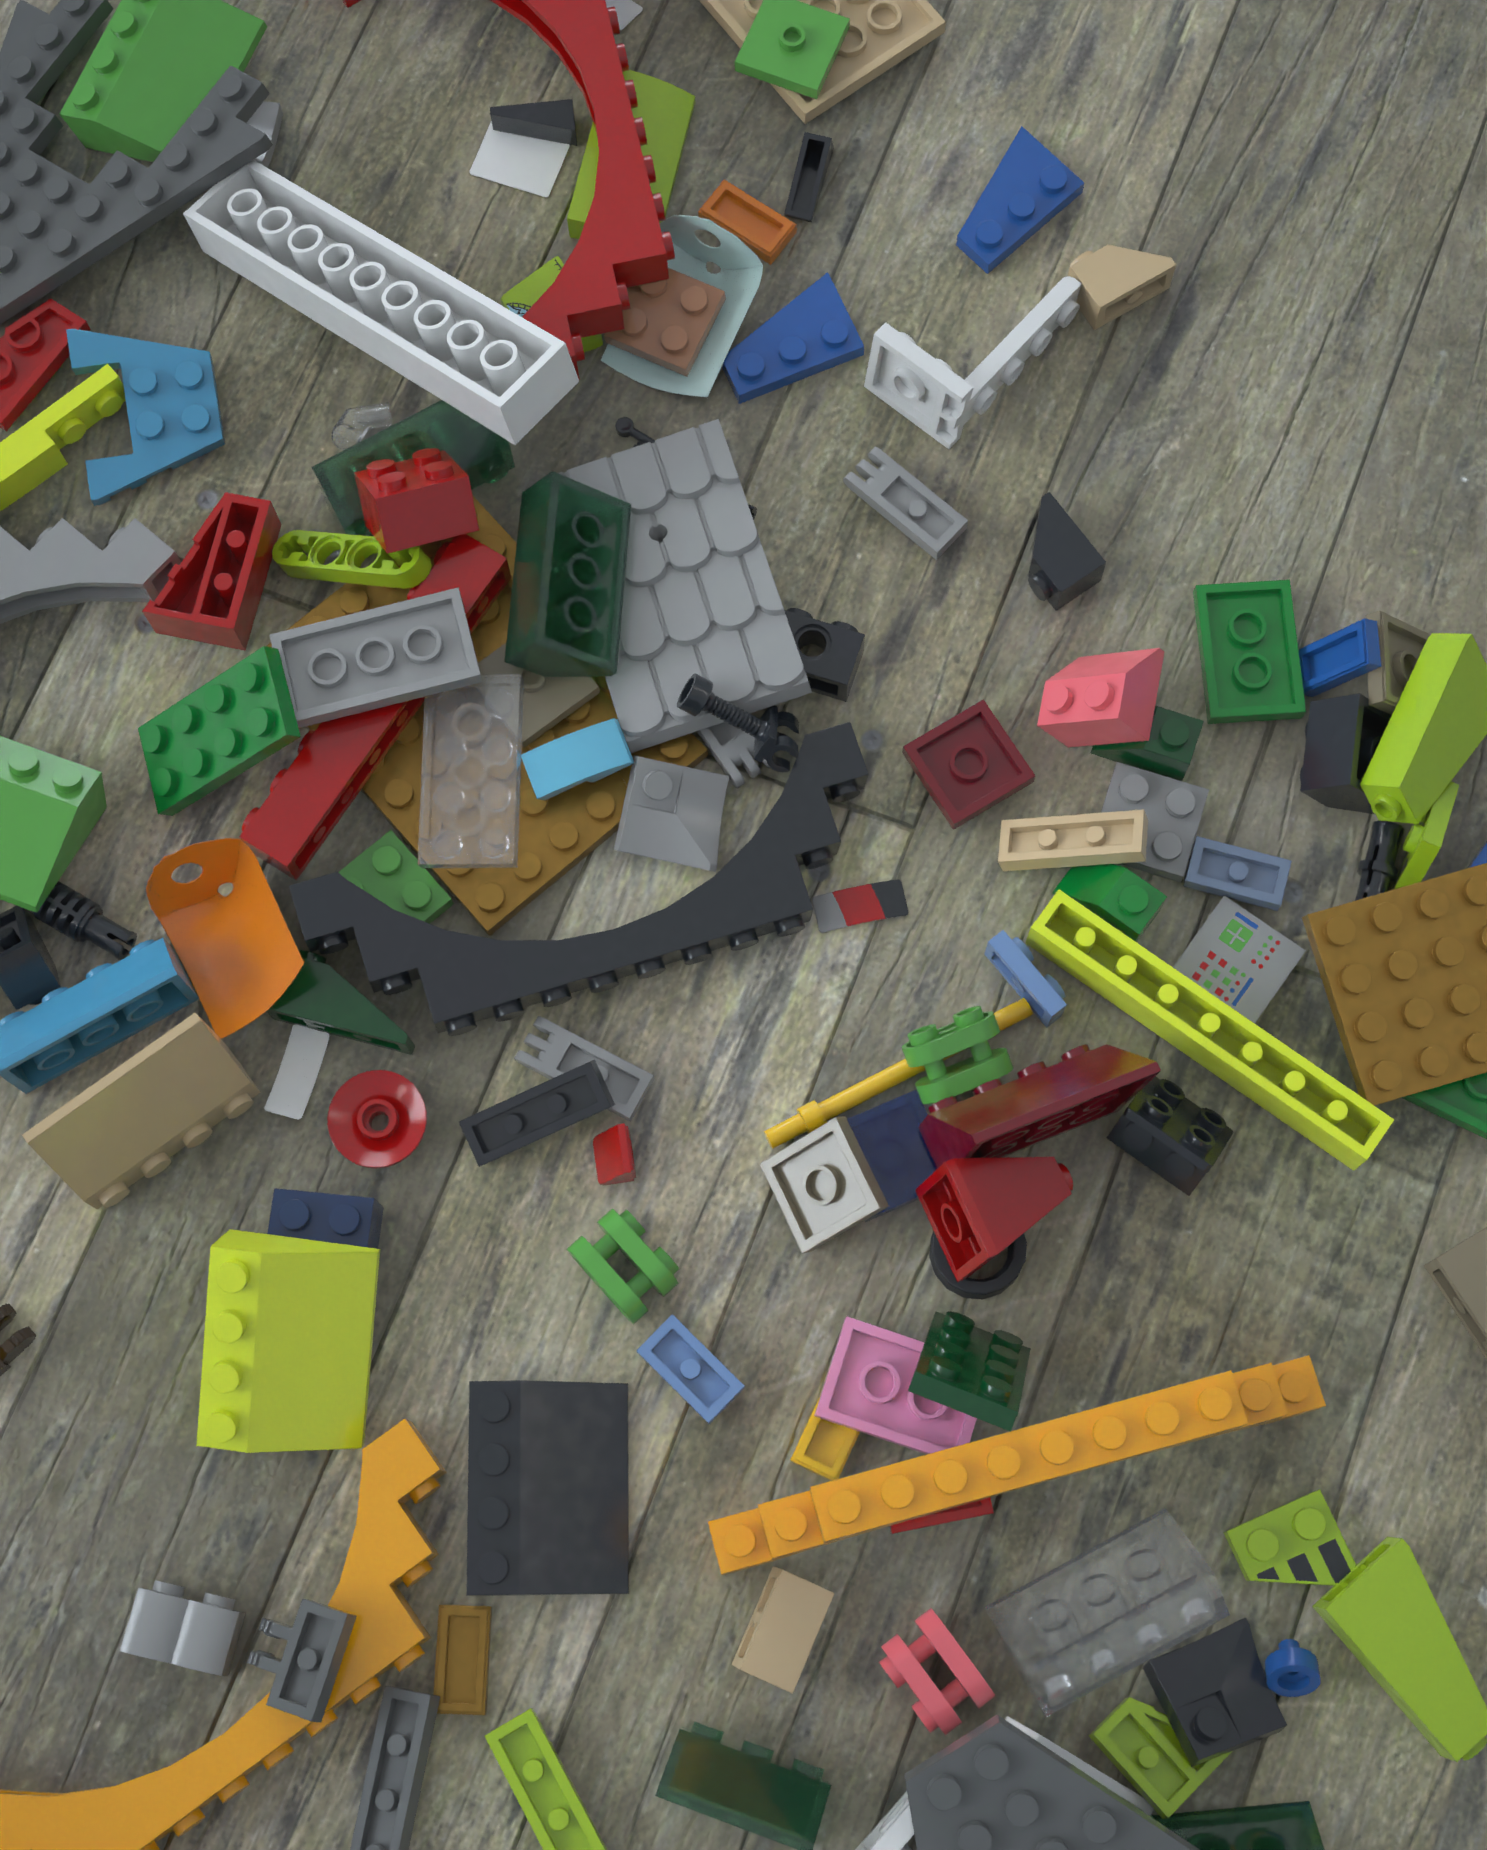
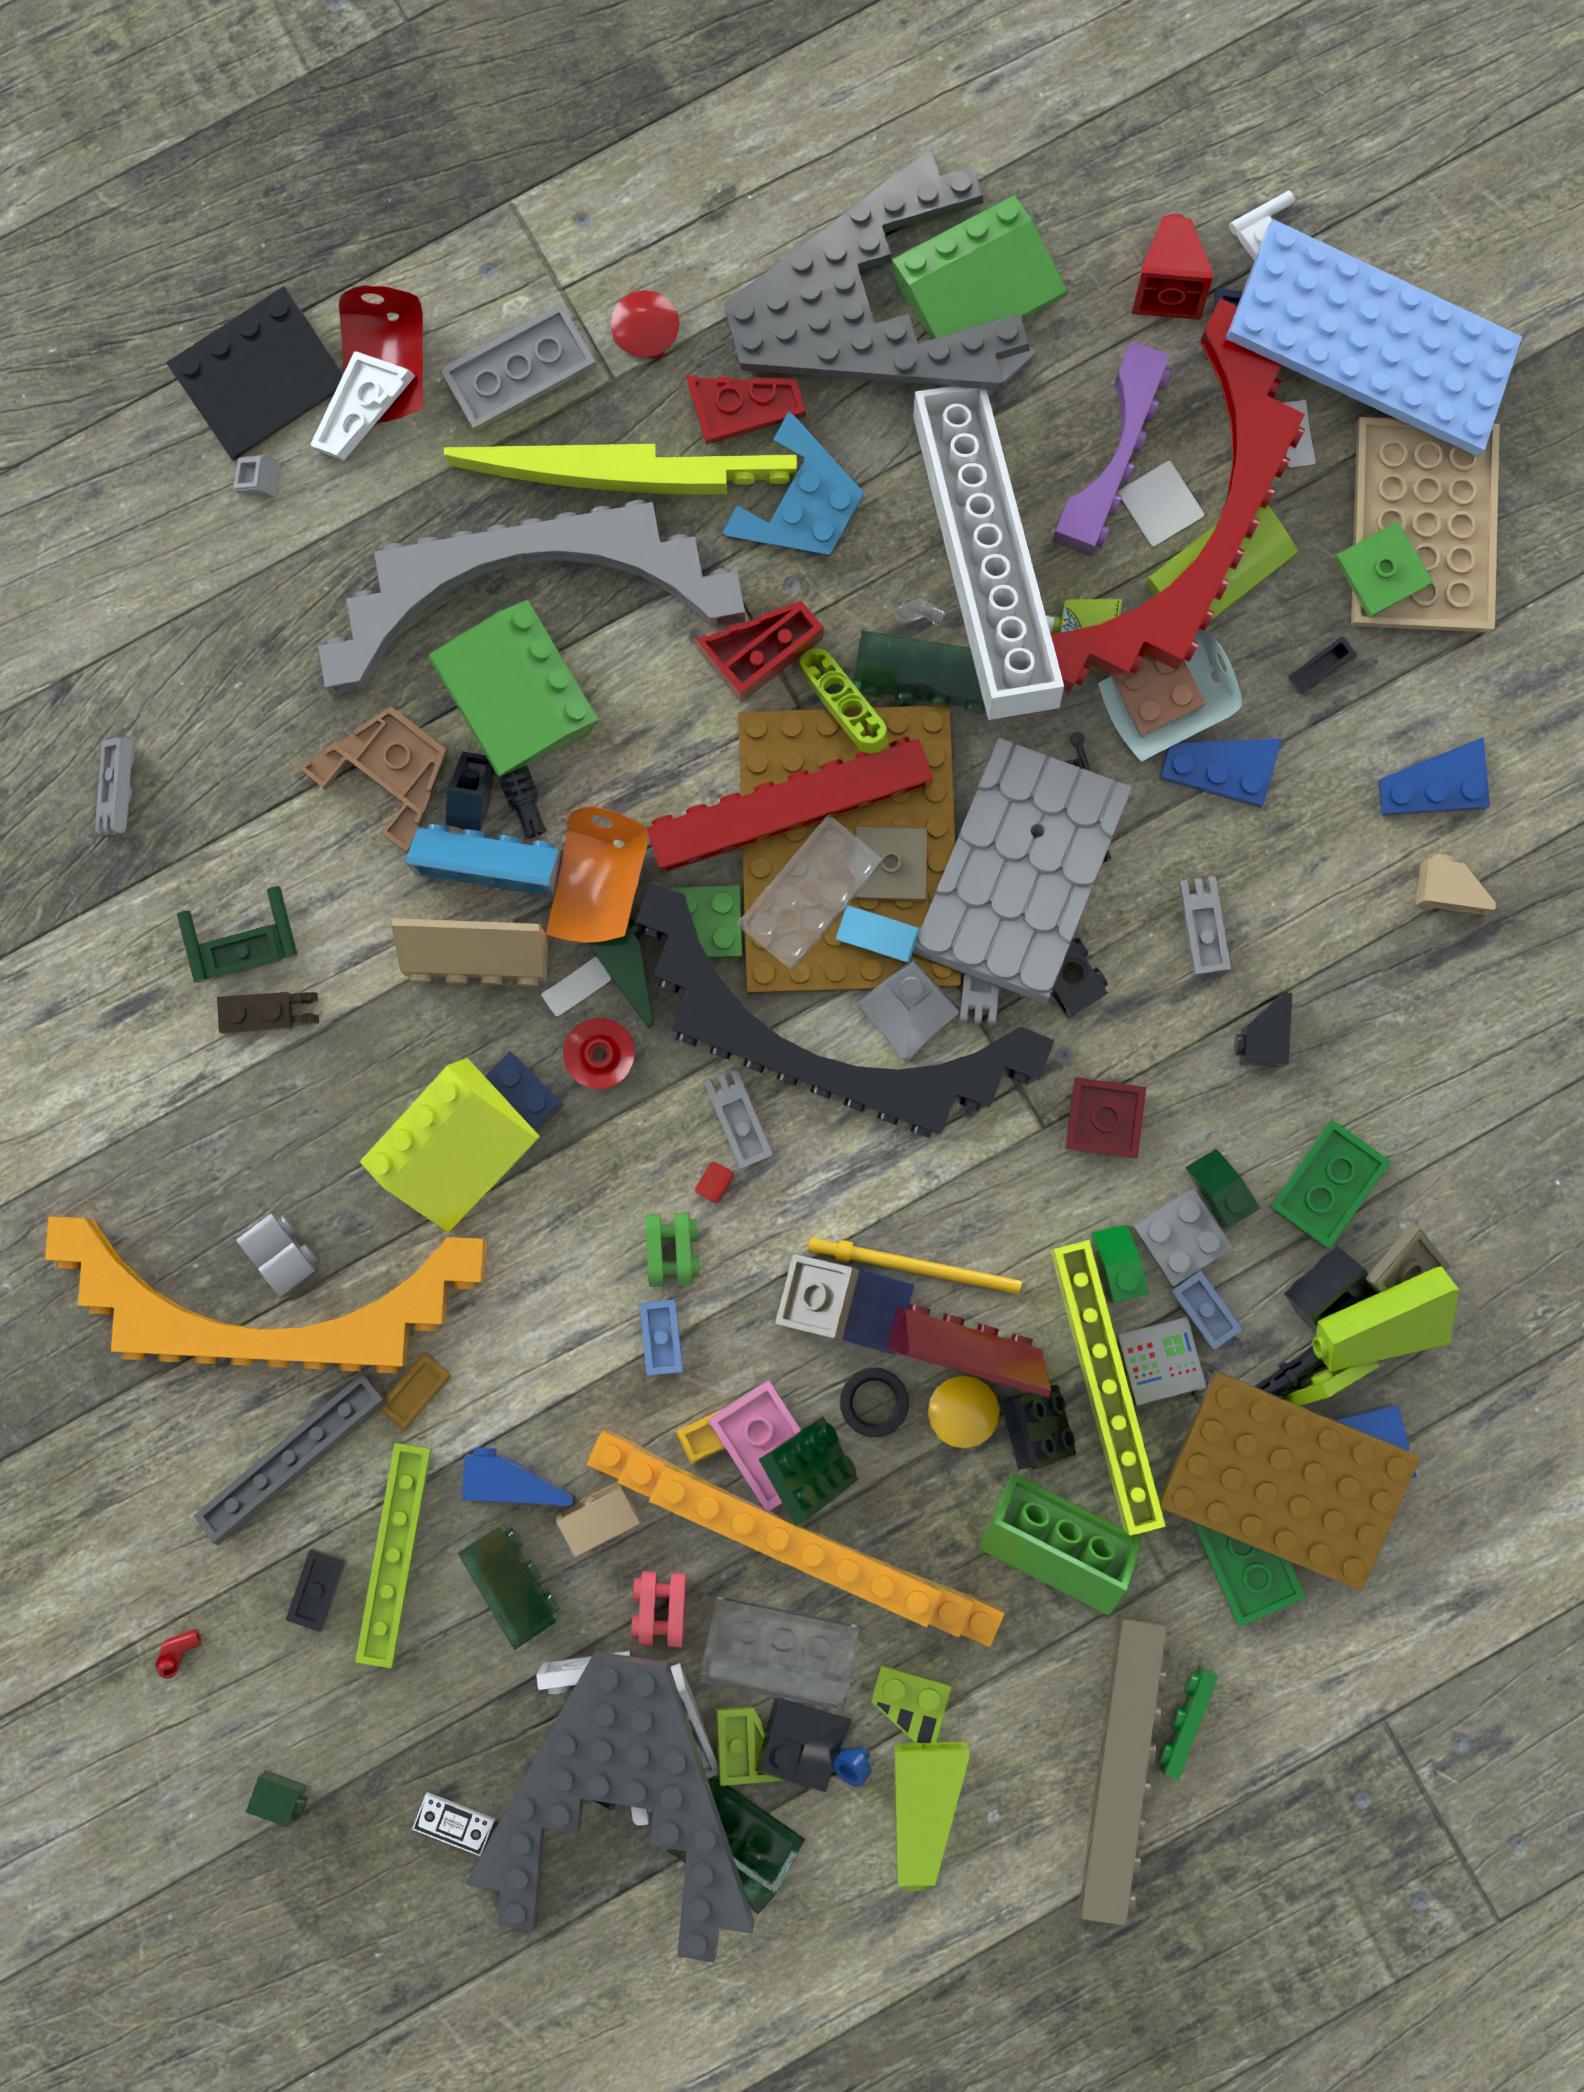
camera: 35 degrees right, 10 degrees up
(219, 731) = (683, 750): green plate -> none
(309, 1660) = (331, 1330): dark grey hinge -> none
(378, 657) = (806, 783): light grey plate -> none
(416, 500) = (907, 701): red brick -> none
(452, 206) = (1136, 384): none -> medium lavender arch
(536, 1113) = (690, 1124): black plate -> none
(538, 120) = (1190, 495): black piece -> none
(547, 1488) = (531, 1339): black slope -> none
(568, 580) = (958, 821): clear green slope -> none
(641, 1674) = (505, 1480): none -> blue slope
(698, 697) = (999, 1012): black bar -> none
(750, 220) = (1261, 663): orange tile -> none
(860, 905) = (974, 1149): sticker -> none
(938, 398) = (1275, 872): white bracket -> none
(969, 1030) = (943, 1269): bright green brick -> none
(988, 1204) = (897, 1390): red slope -> none
(1014, 961) = (1032, 1287): medium blue plate -> none
(1073, 840) = (1125, 1215): tan plate -> none
(1098, 1179) = (963, 1411): none -> yellow dish
(1103, 698) = (1216, 1144): coral slope -> none
(1302, 1237) = (1061, 1544): none -> bright green slope
(1340, 657) = (1376, 1234): blue tile -> none

